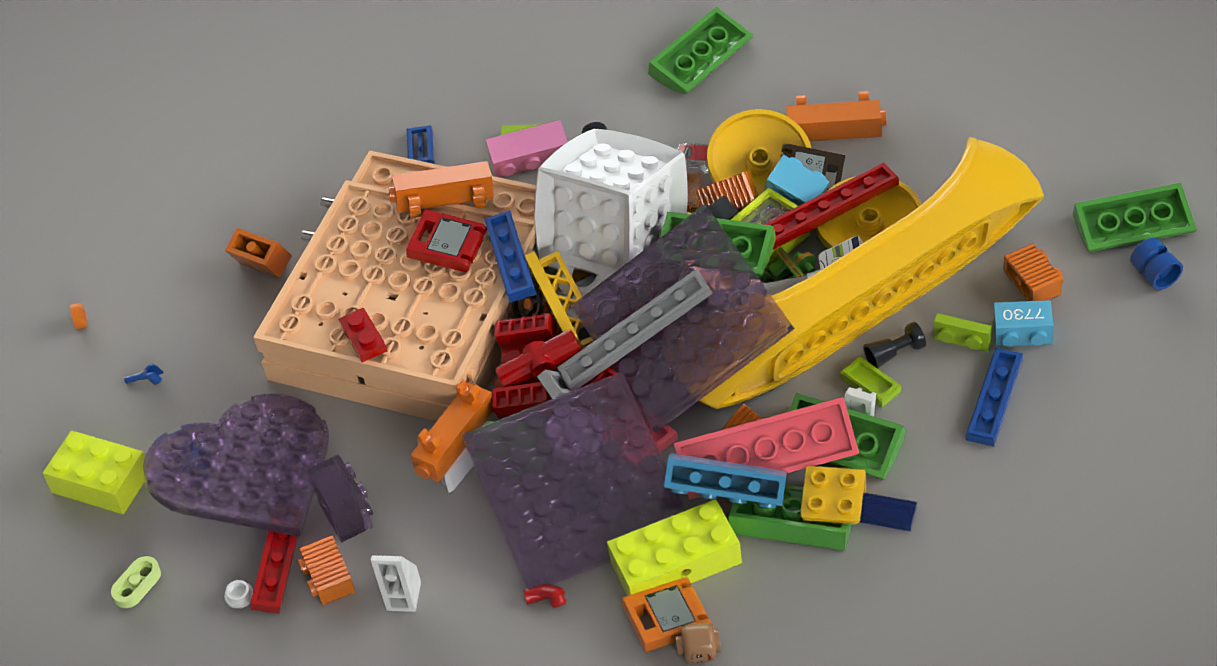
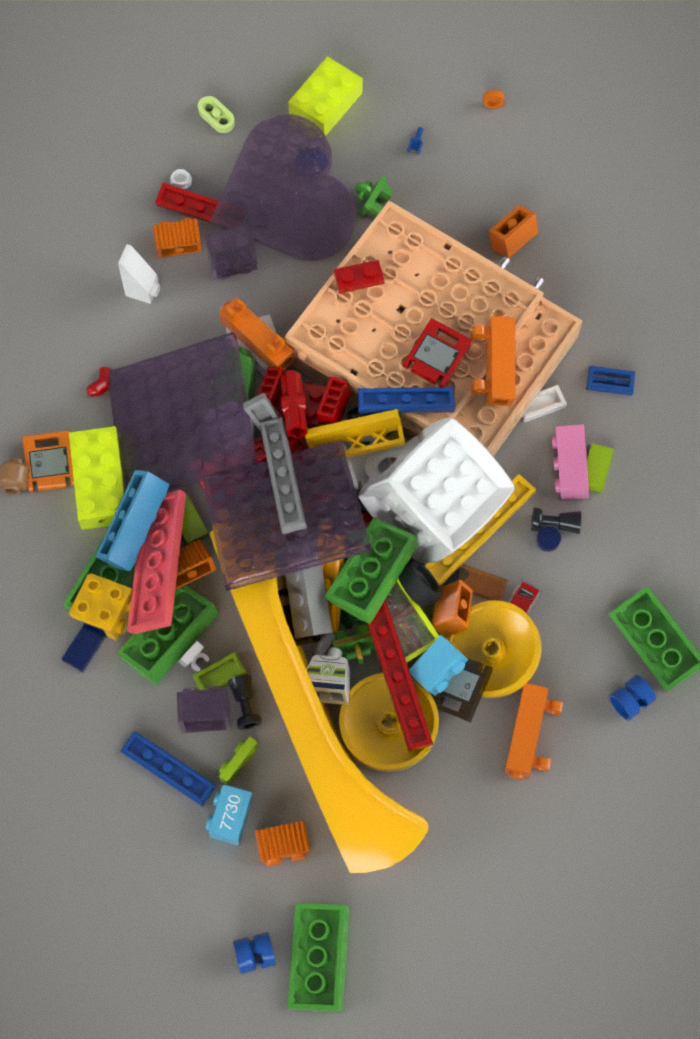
camera: 95 degrees right, 20 degrees up
(226, 391) = (379, 190): none -> bright green hips
(770, 52) = (632, 697): none -> blue wheel
(921, 366) = (203, 710): none -> clear purple brick

